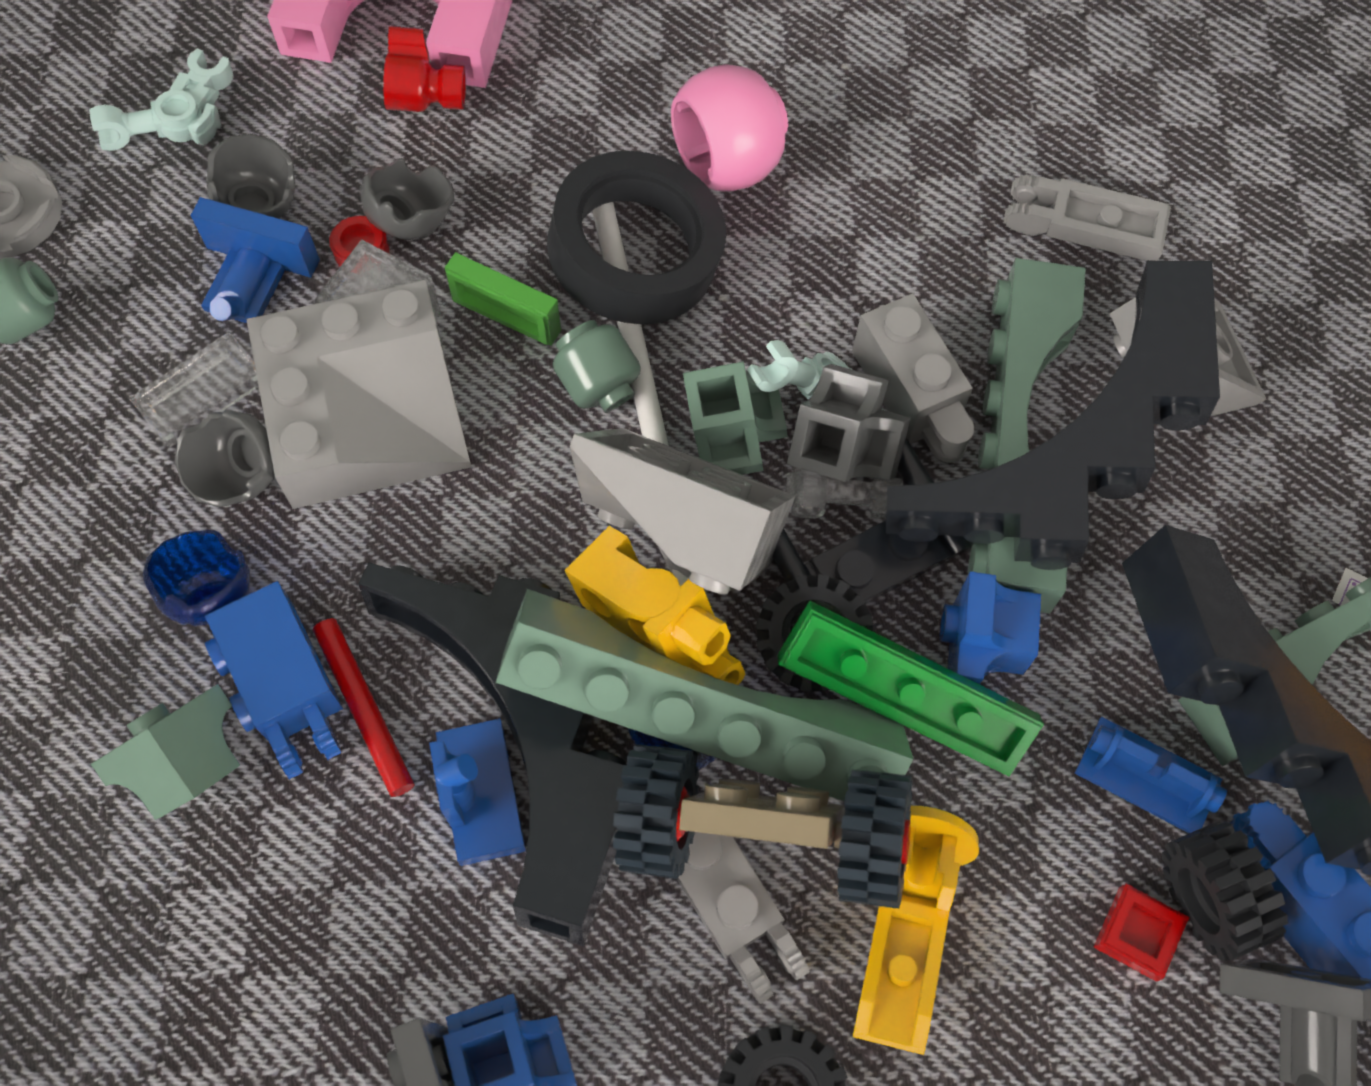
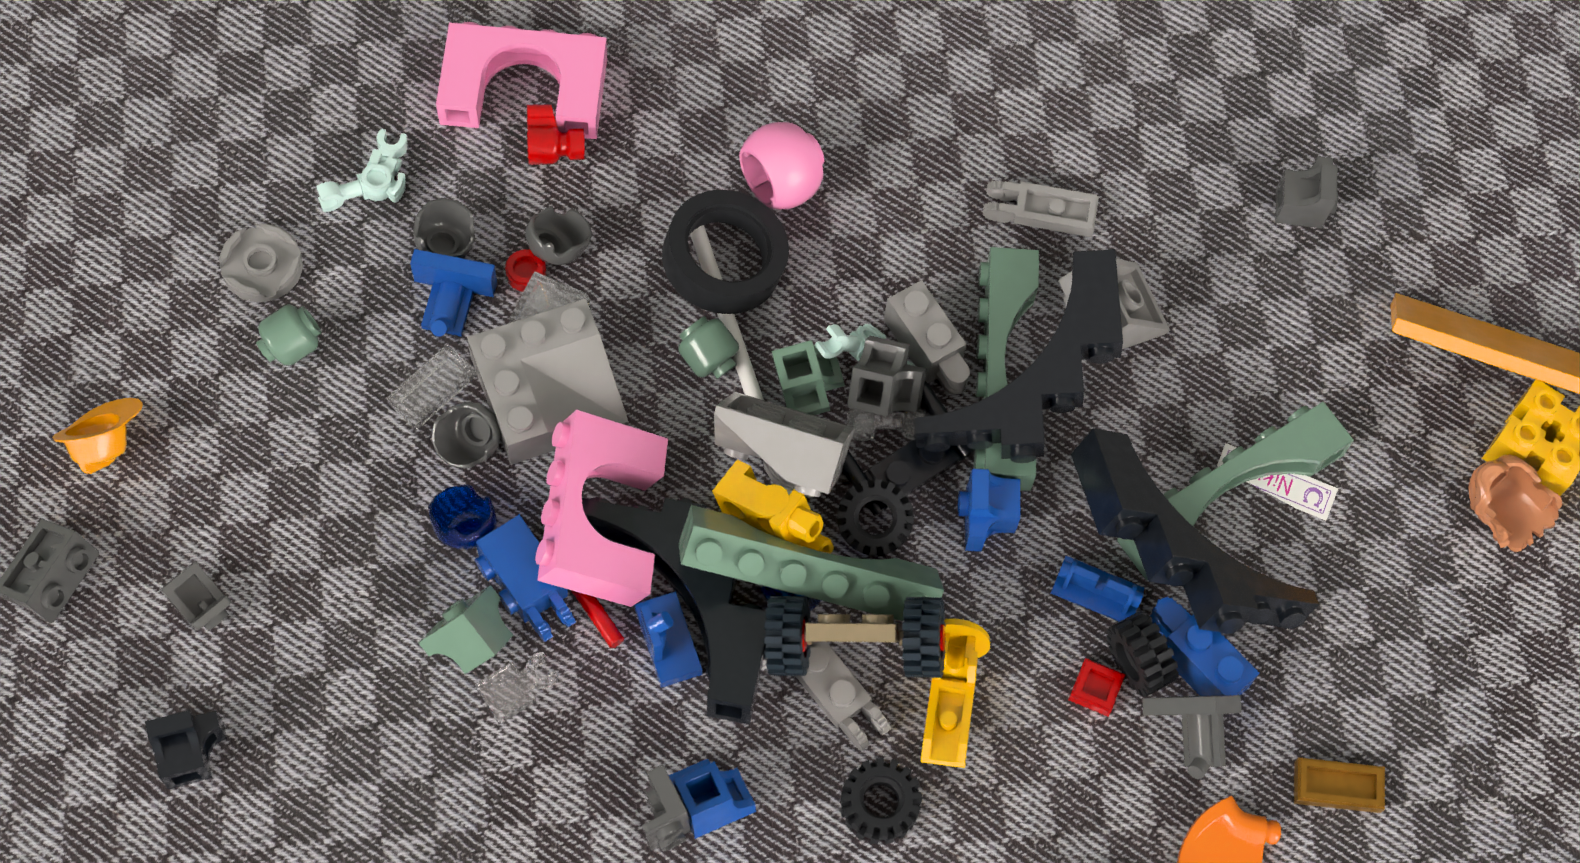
camera: 10 degrees left, 0 degrees up
(225, 848) = (510, 691): none -> clear plate
(342, 644) = (571, 549): none -> bright pink arch
(503, 299) = (637, 304): bright green tile -> none
(909, 689) = (939, 547): green tile -> none

